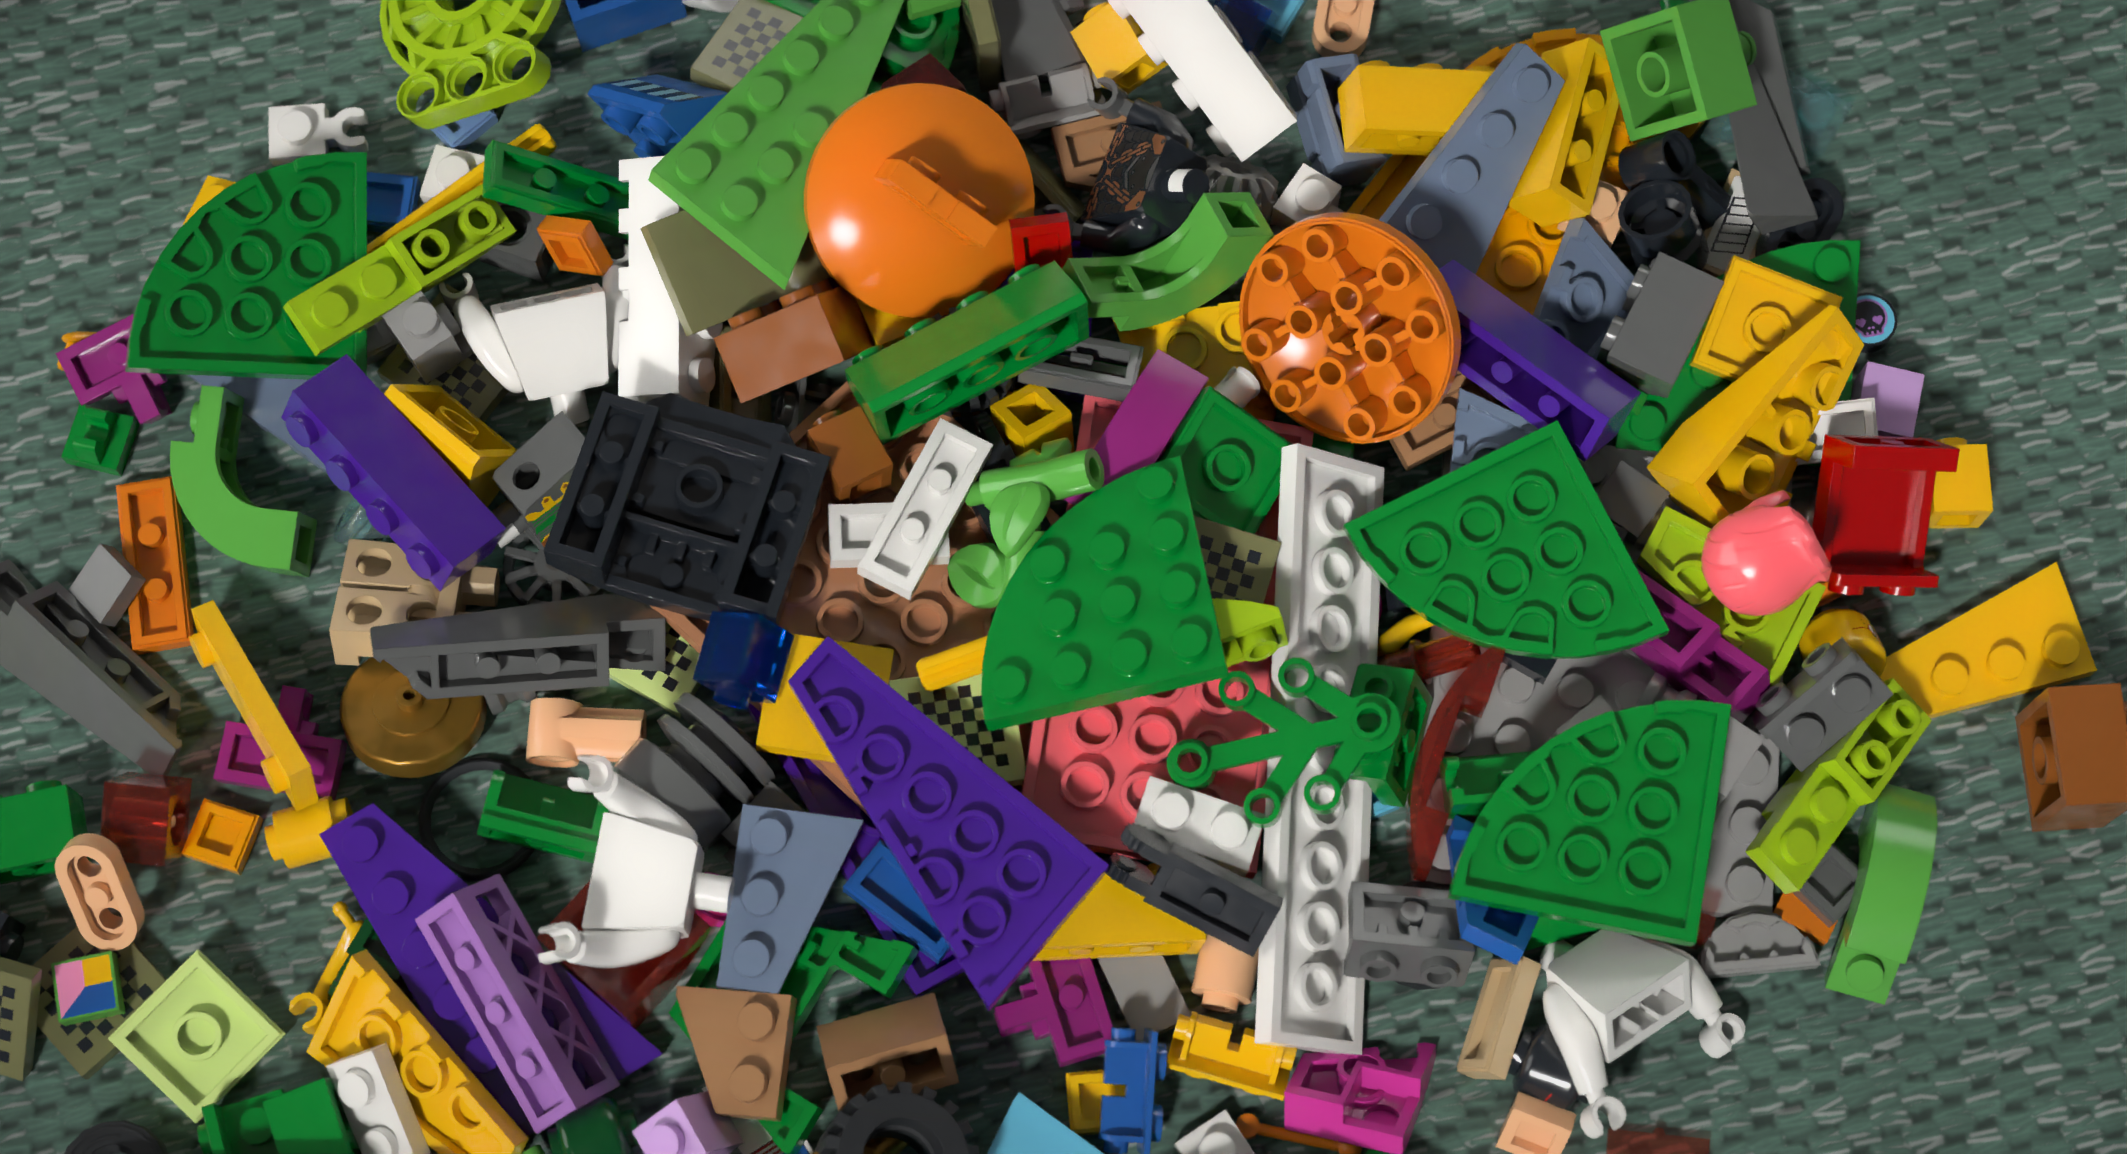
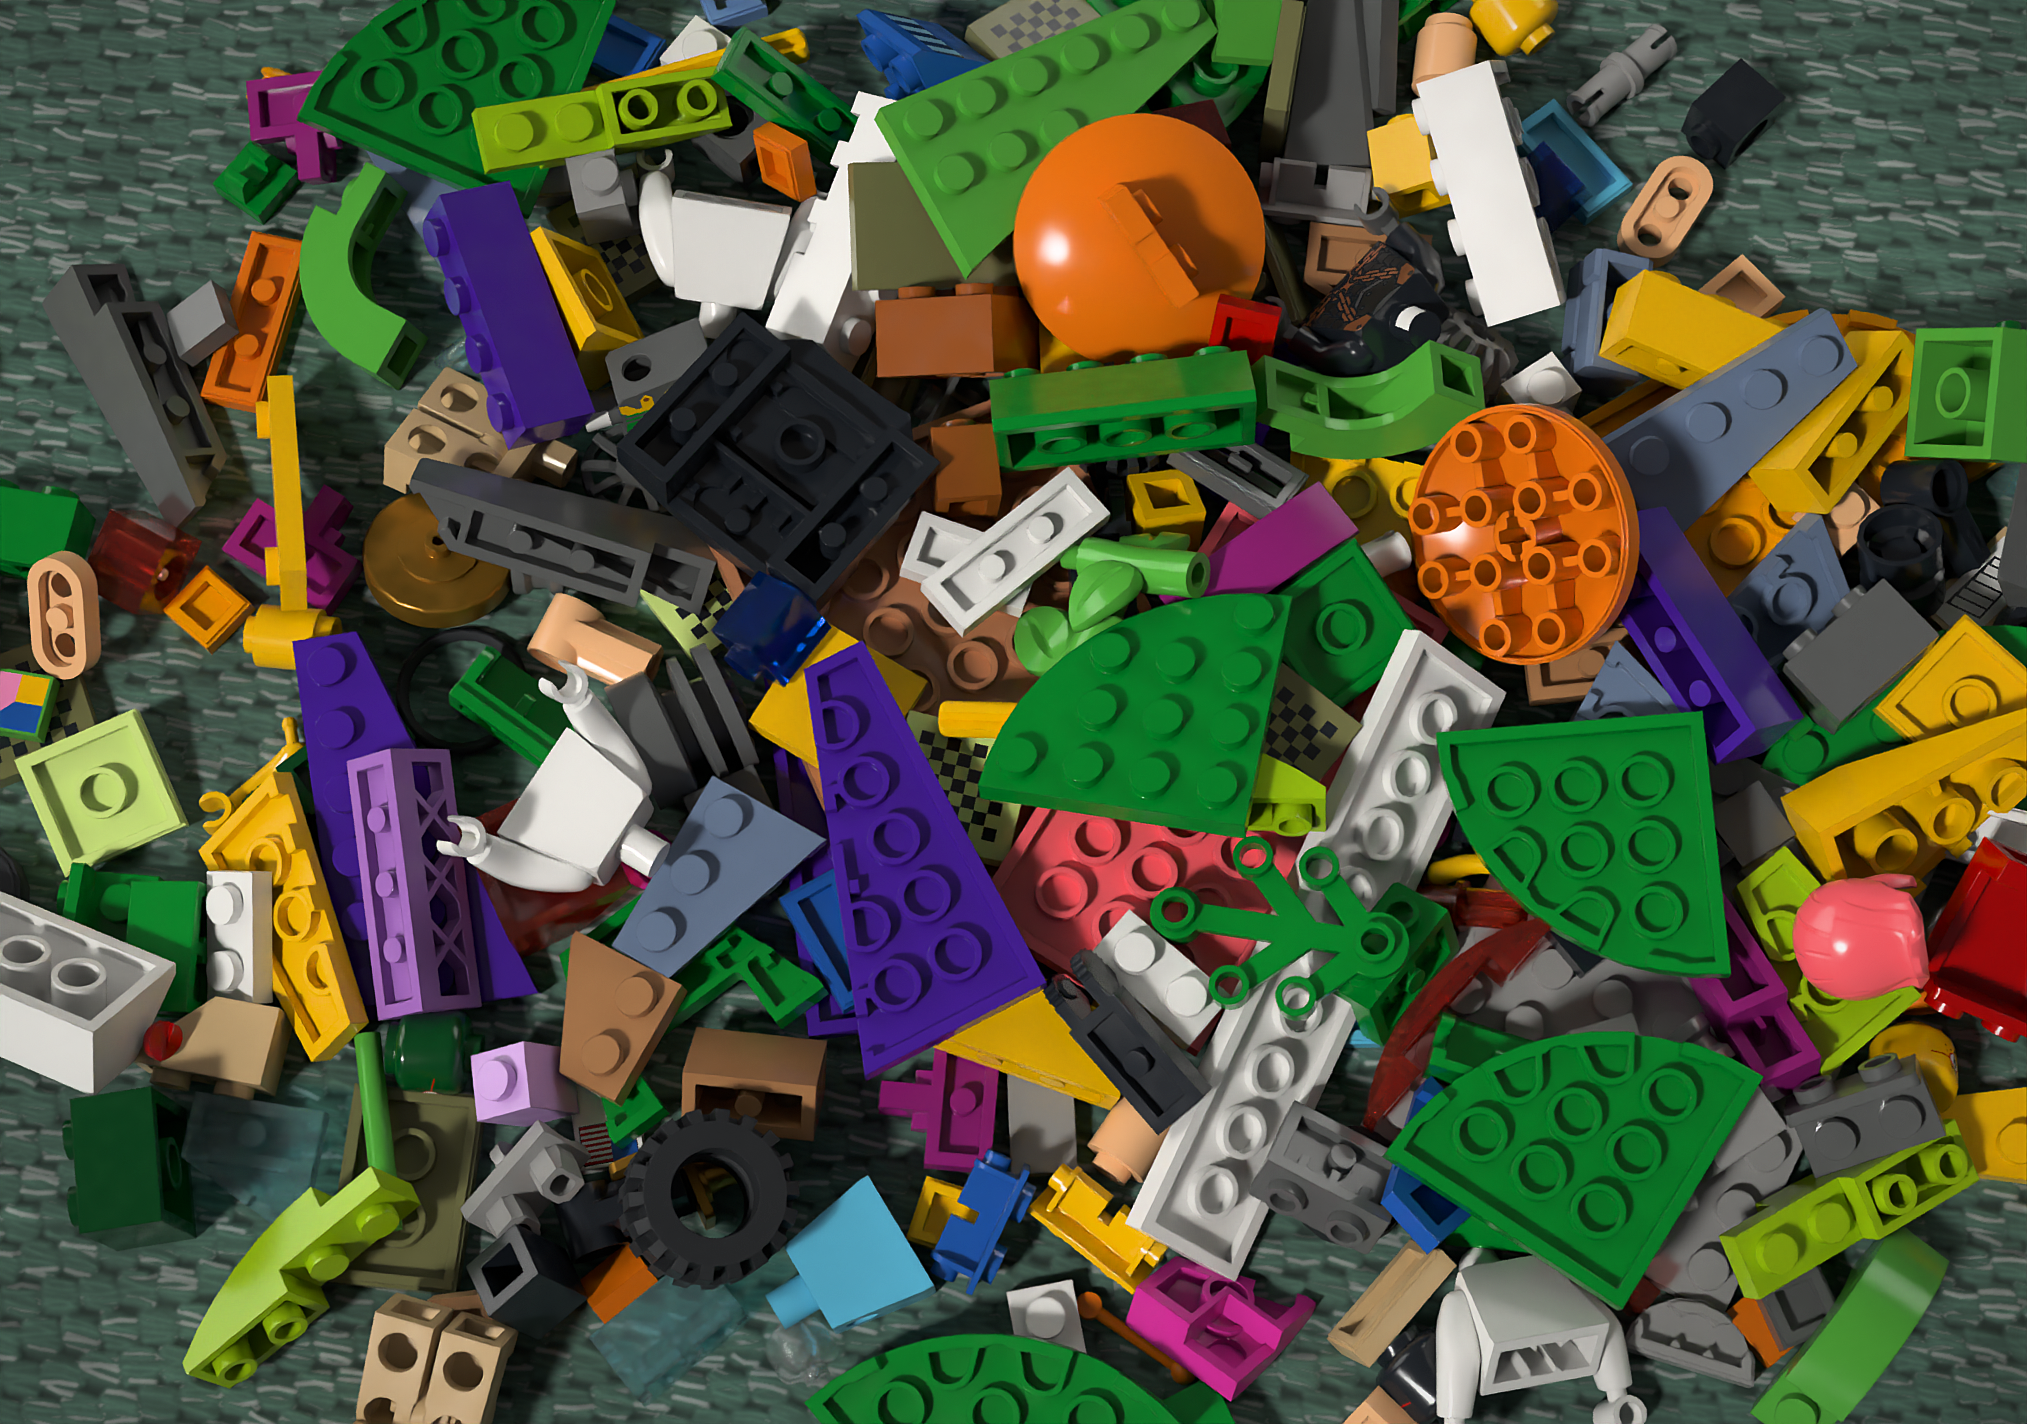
camera: 25 degrees right, 0 degrees up
(1438, 46) = (1746, 288): none -> light nougat plate

